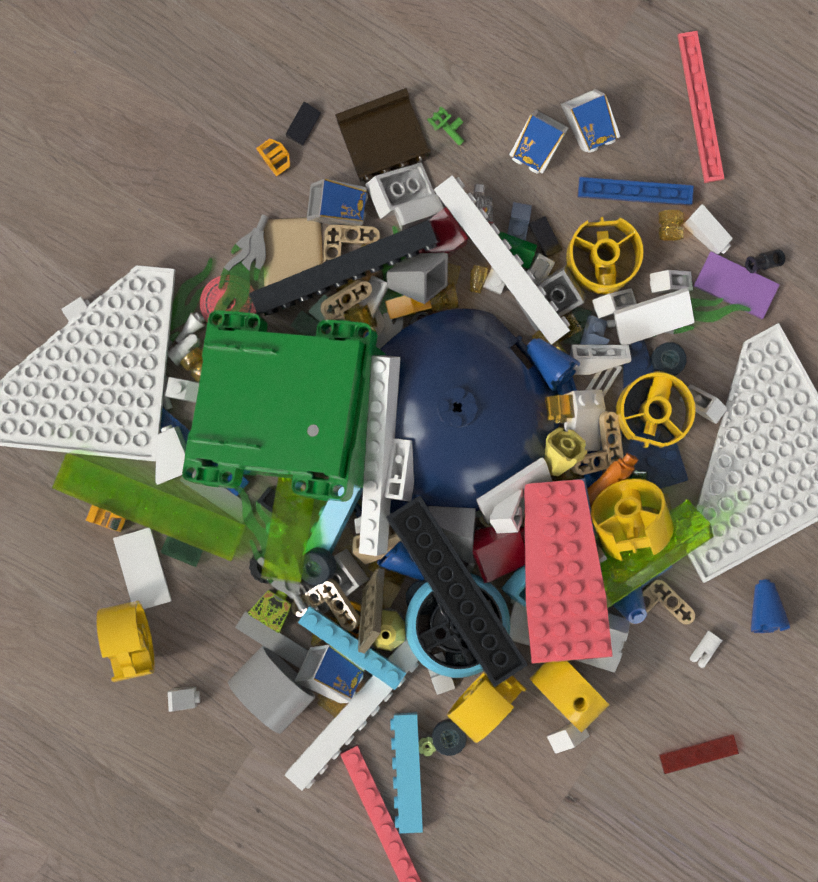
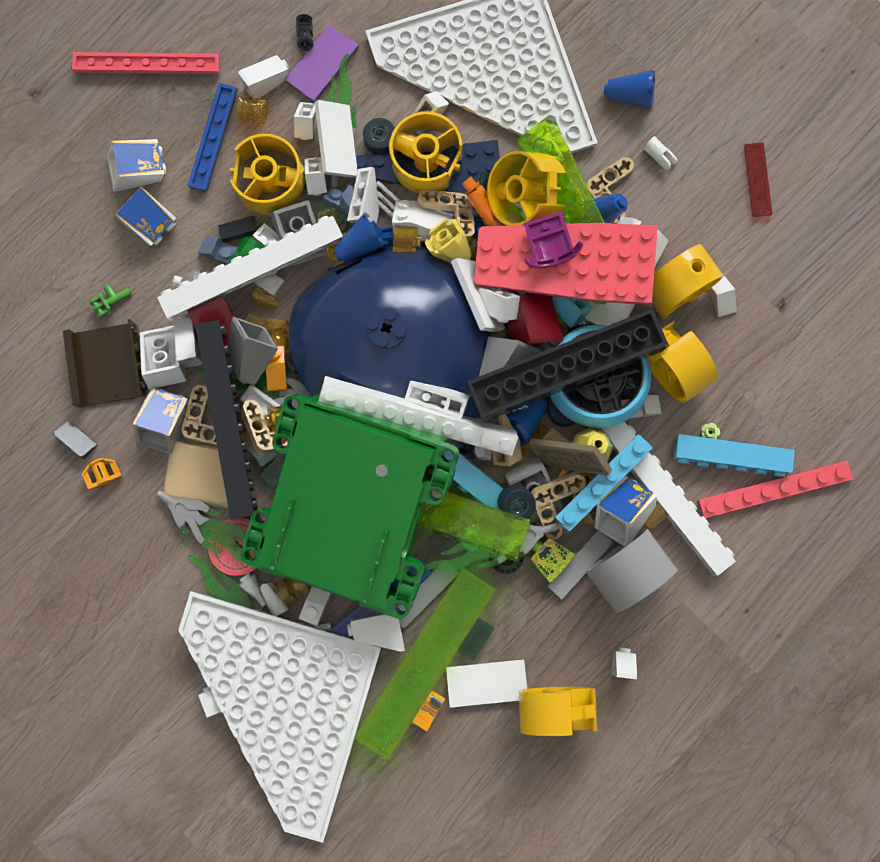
camera: 75 degrees left, 5 degrees down
(444, 733) = (701, 414): black wheel -> none
(575, 551) = (550, 242): none -> magenta piece

